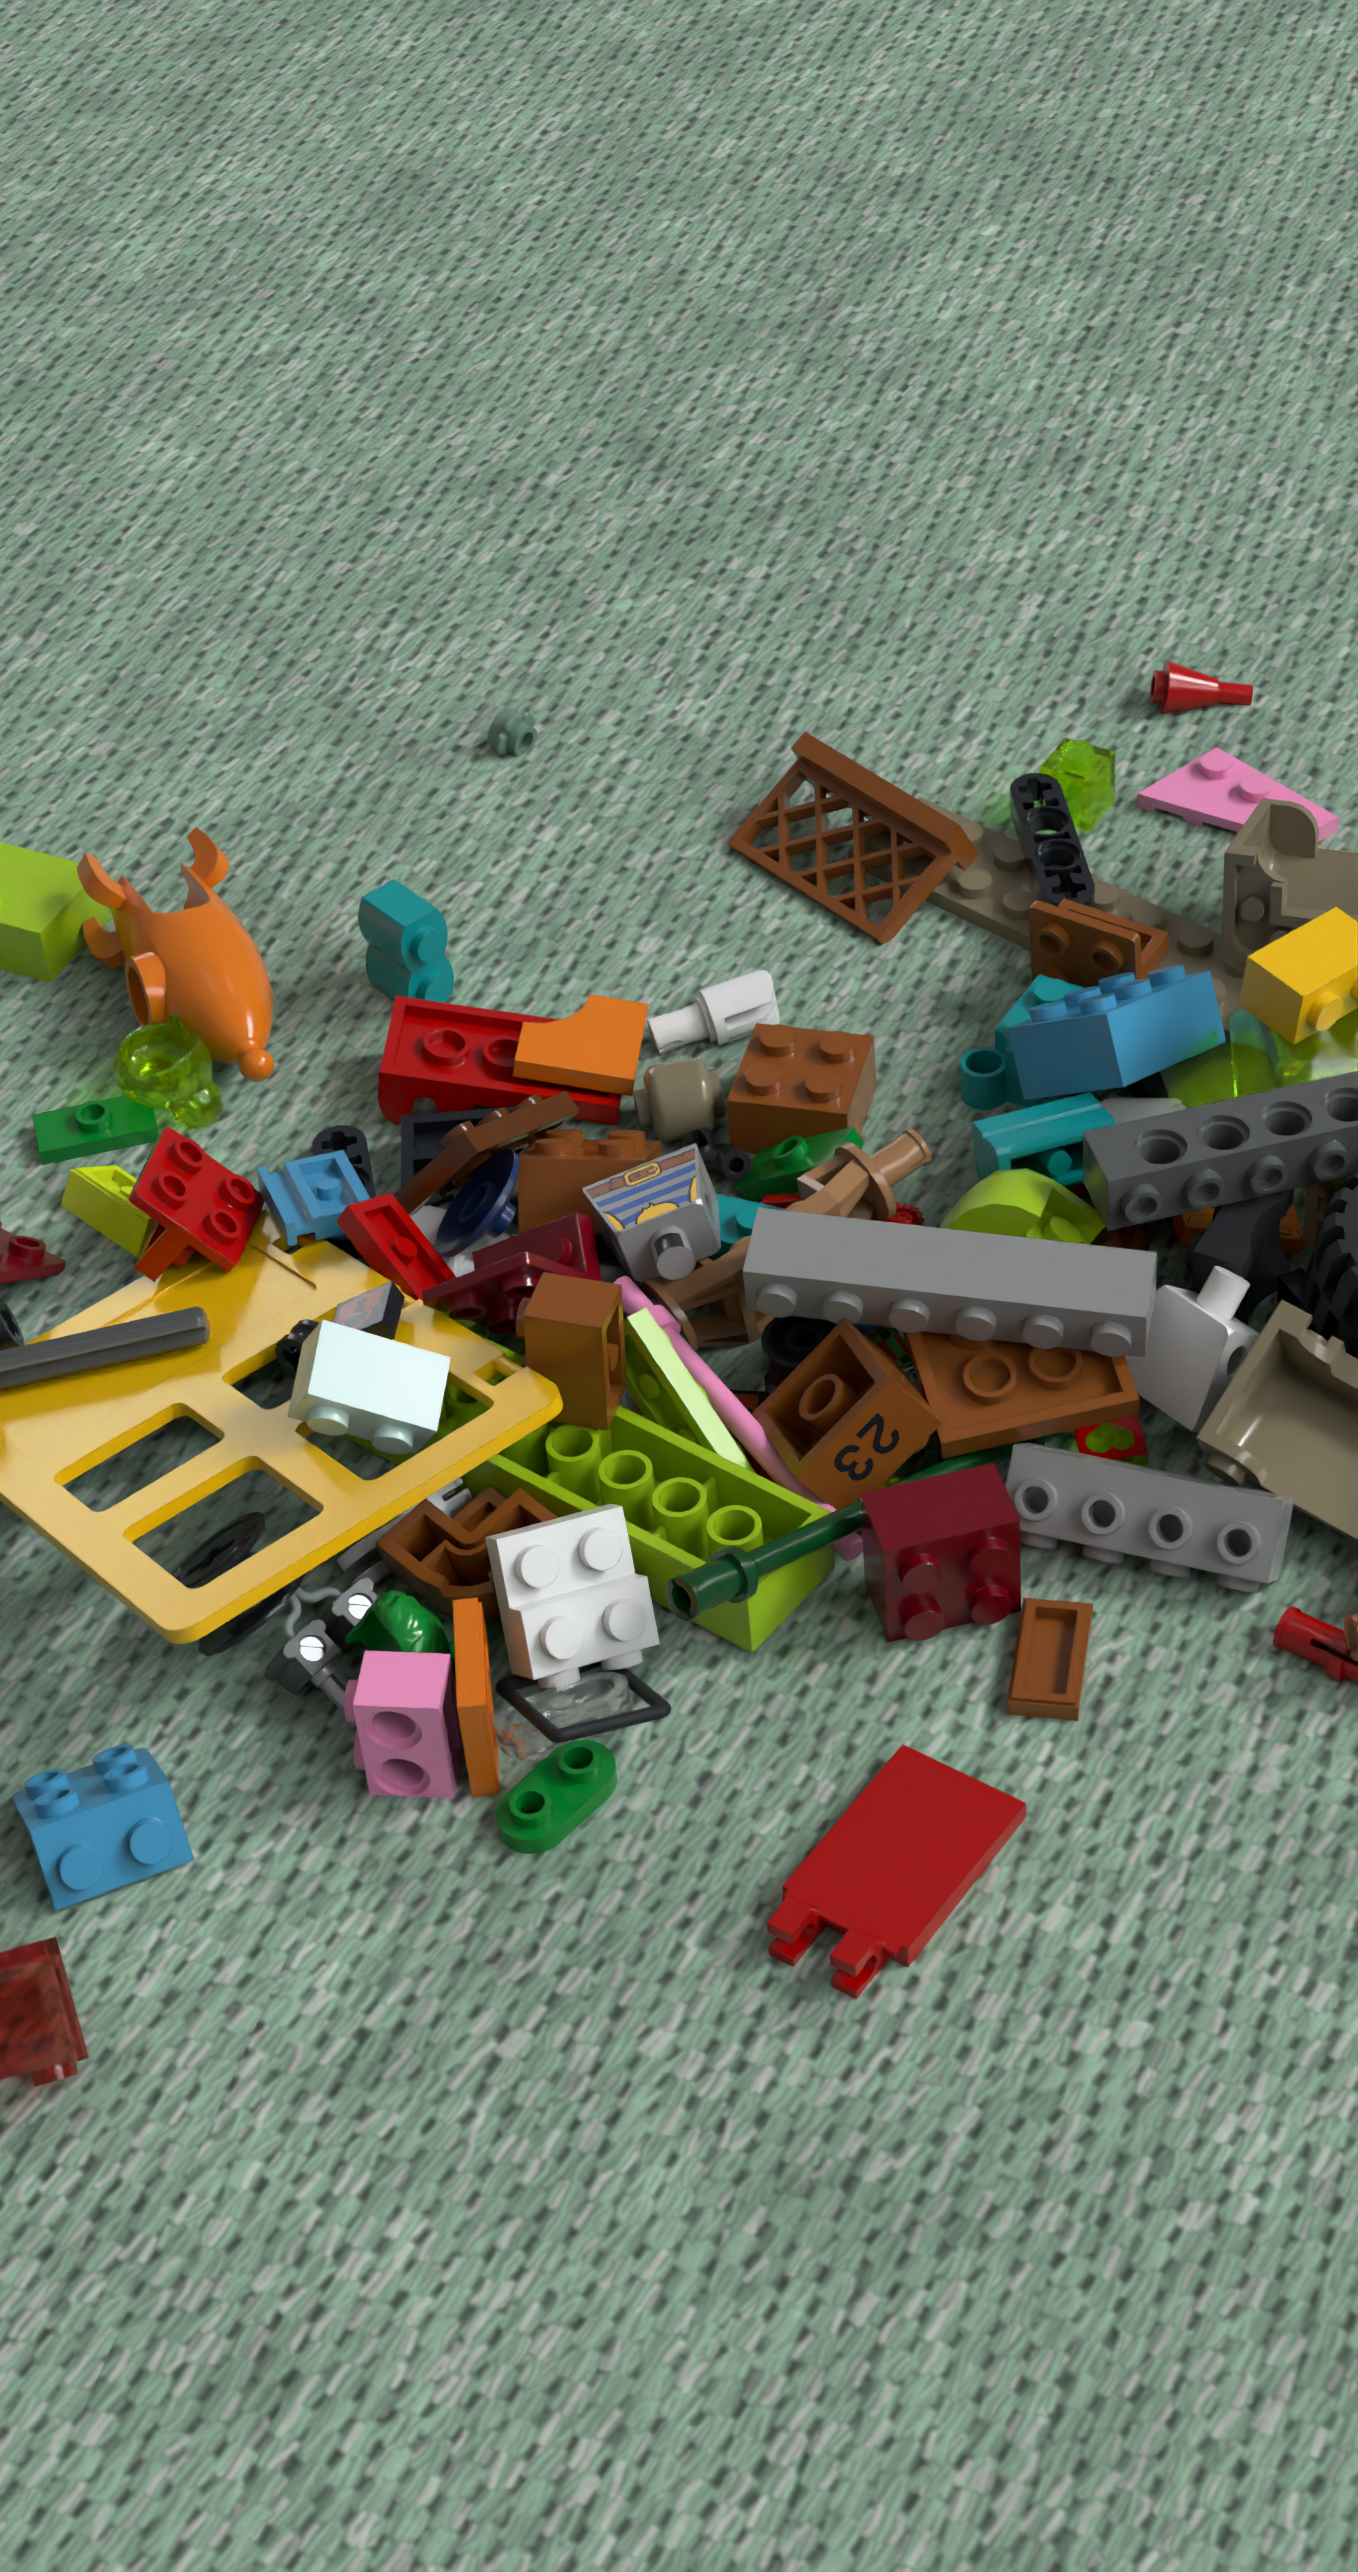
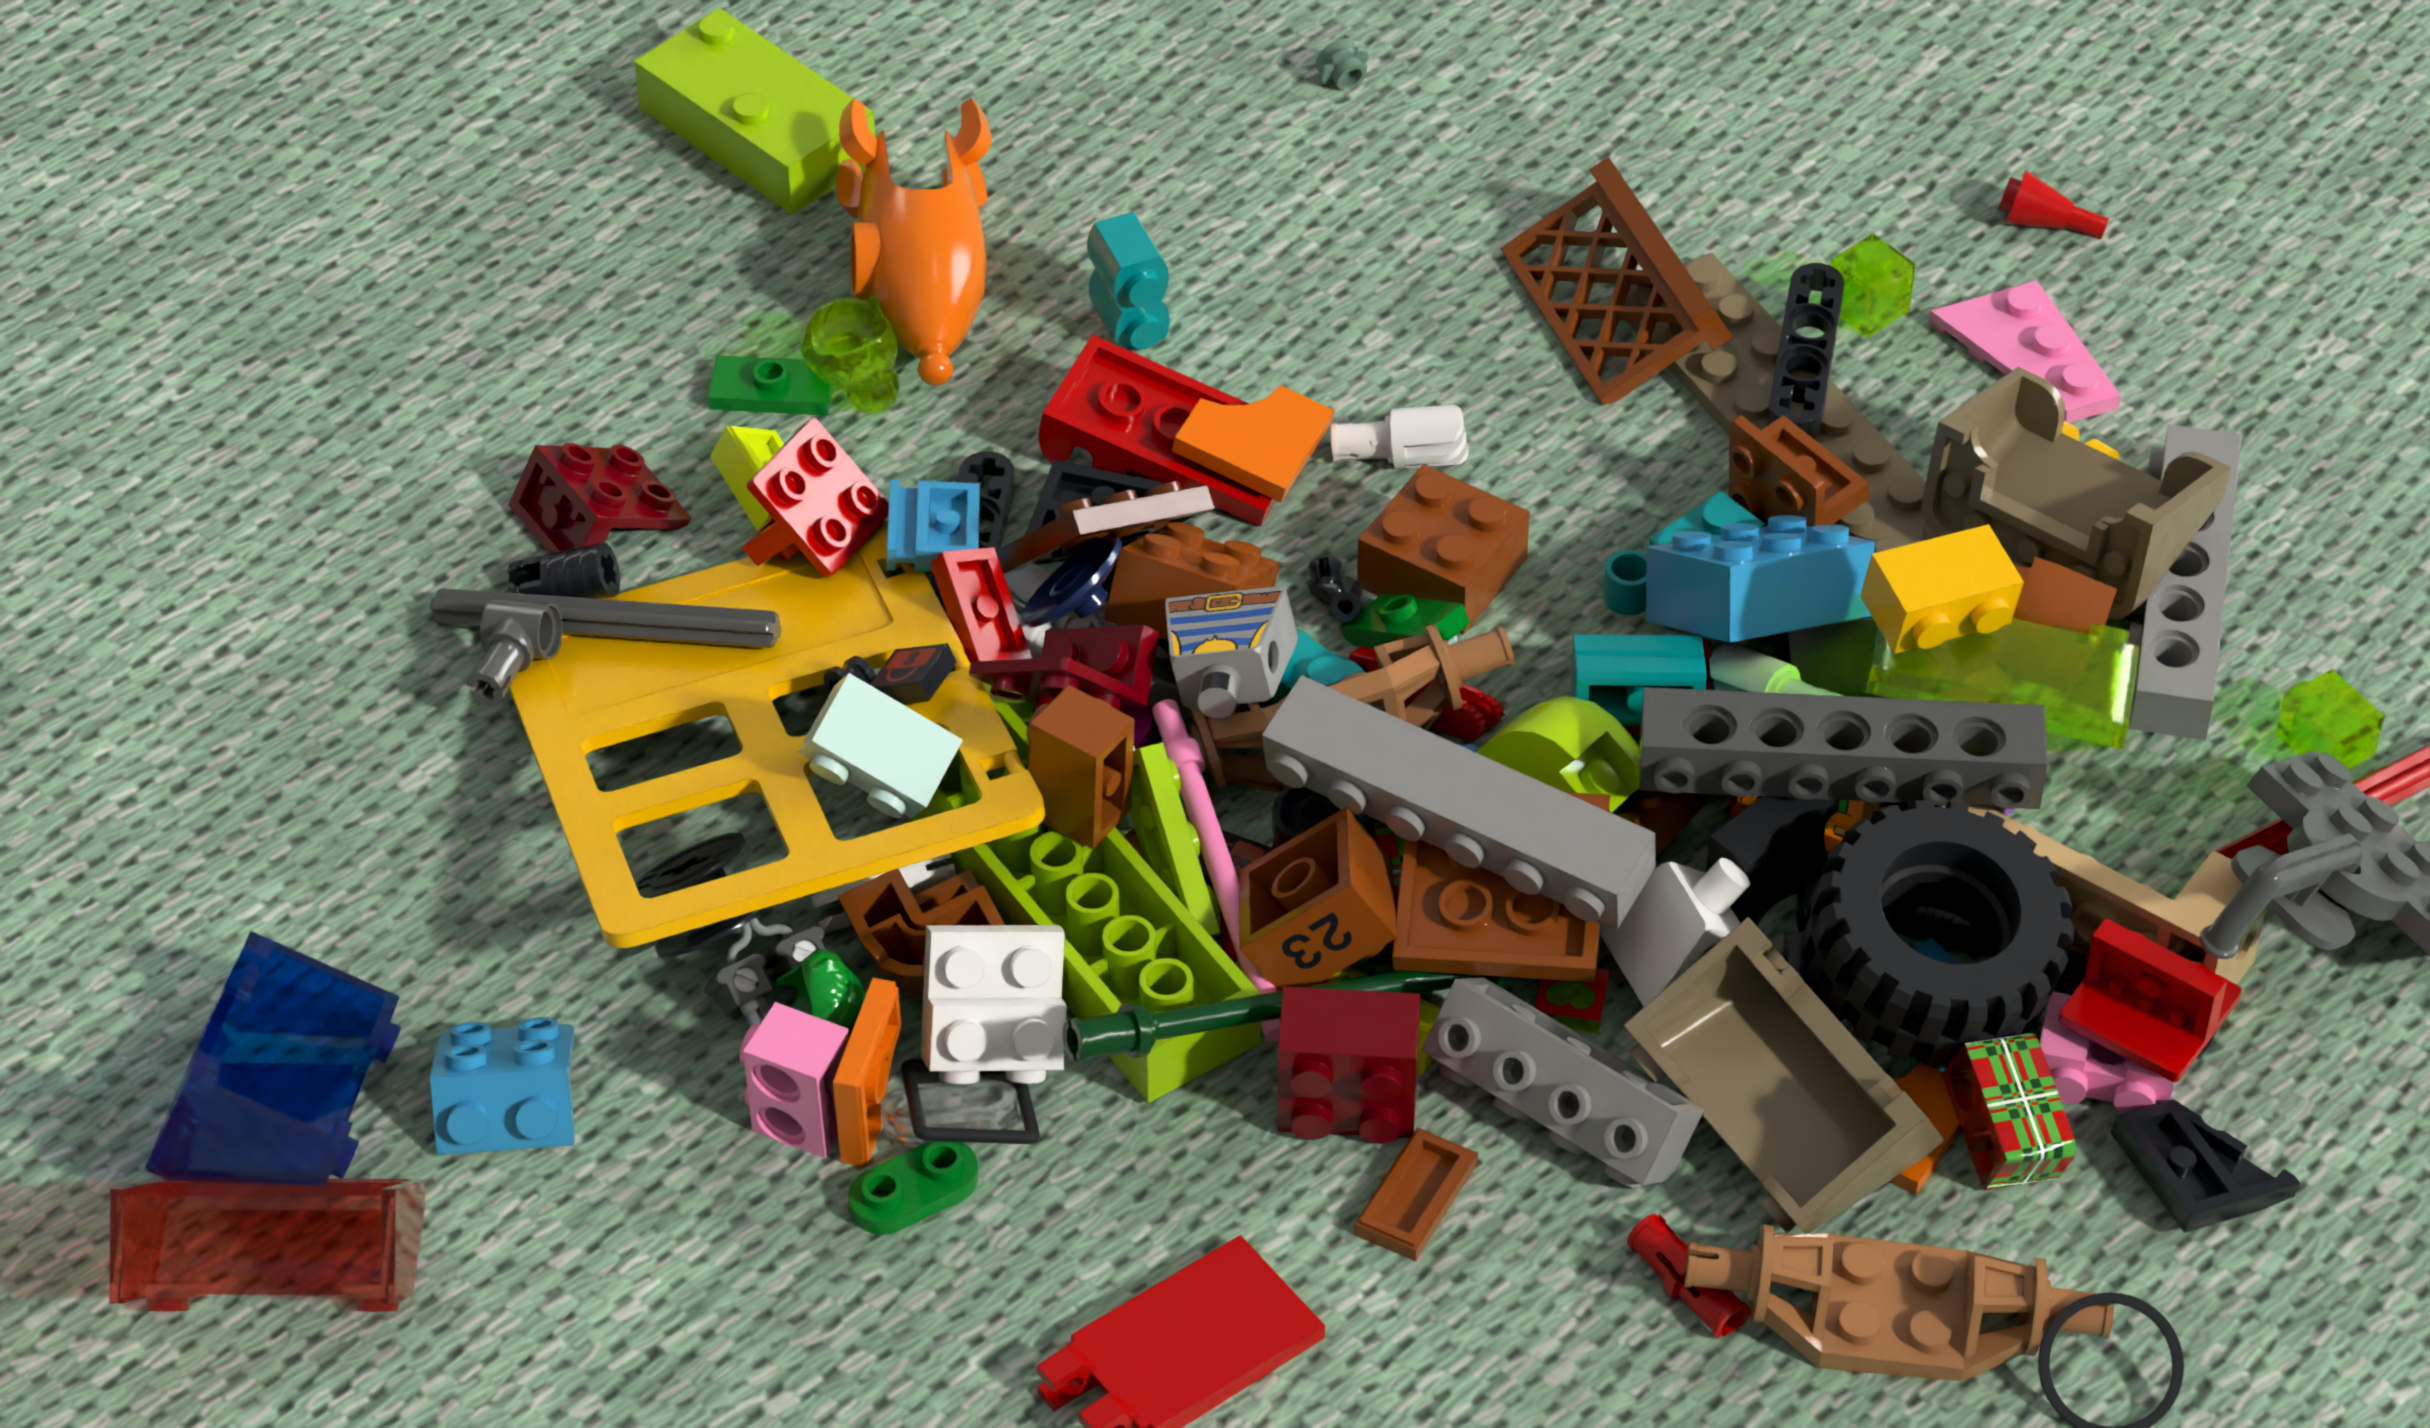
camera: 15 degrees right, 5 degrees up
(679, 1099) = (1322, 520): dark tan head -> none

